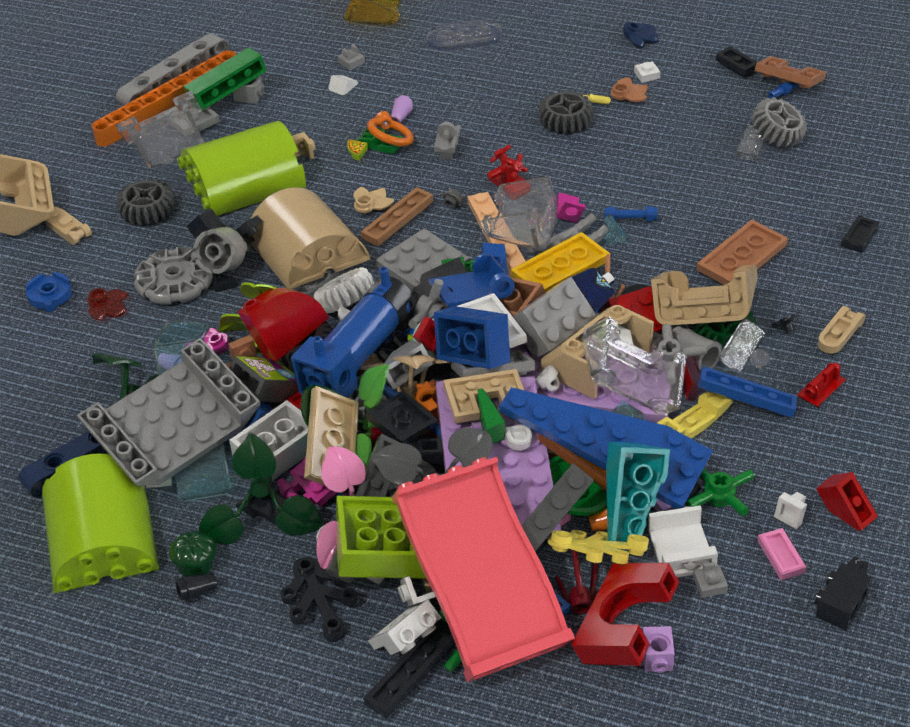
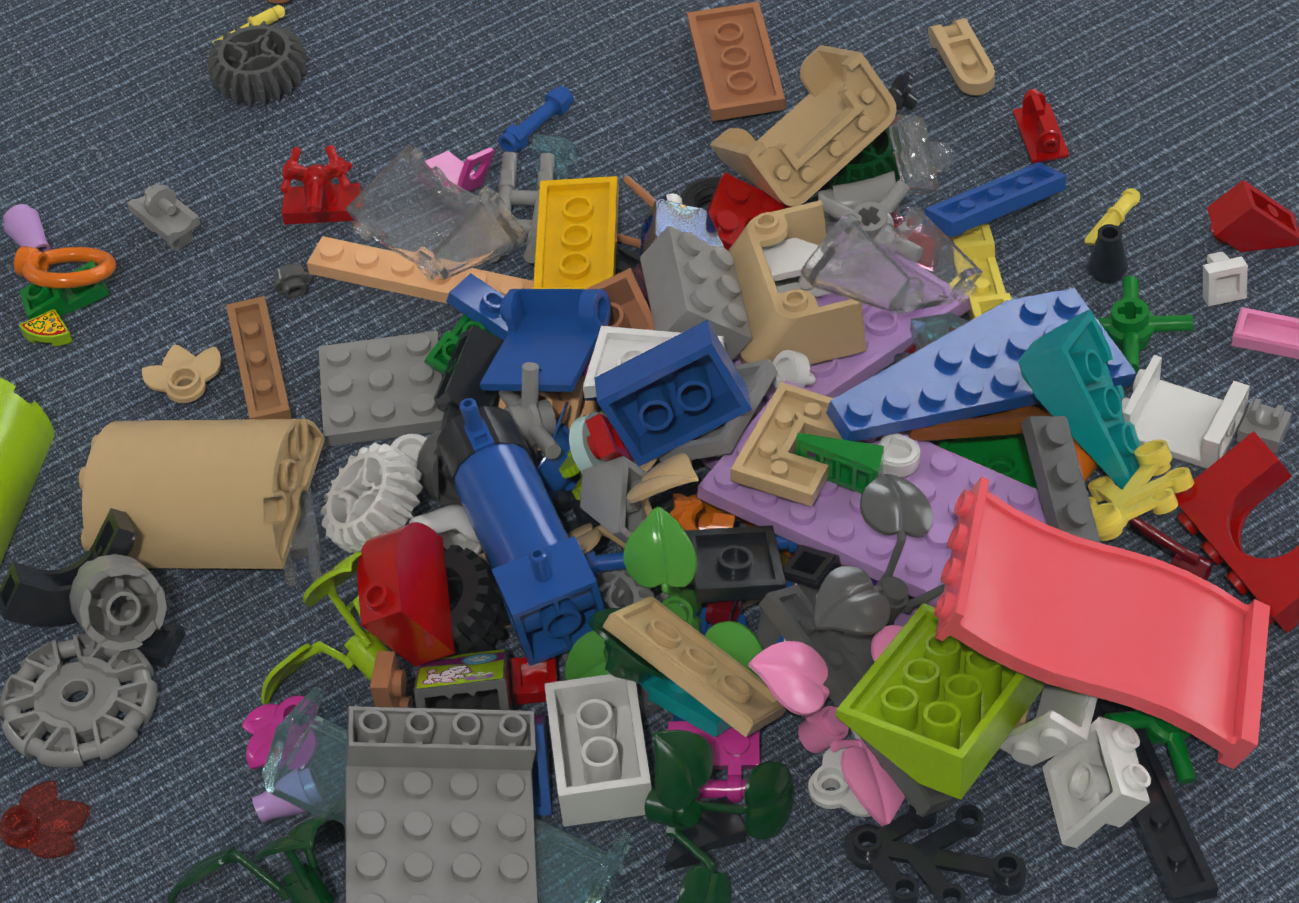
camera: 50 degrees left, 5 degrees up
(757, 456) = (1108, 255): none -> black cone
(789, 446) = (1115, 214): none -> light yellow piece

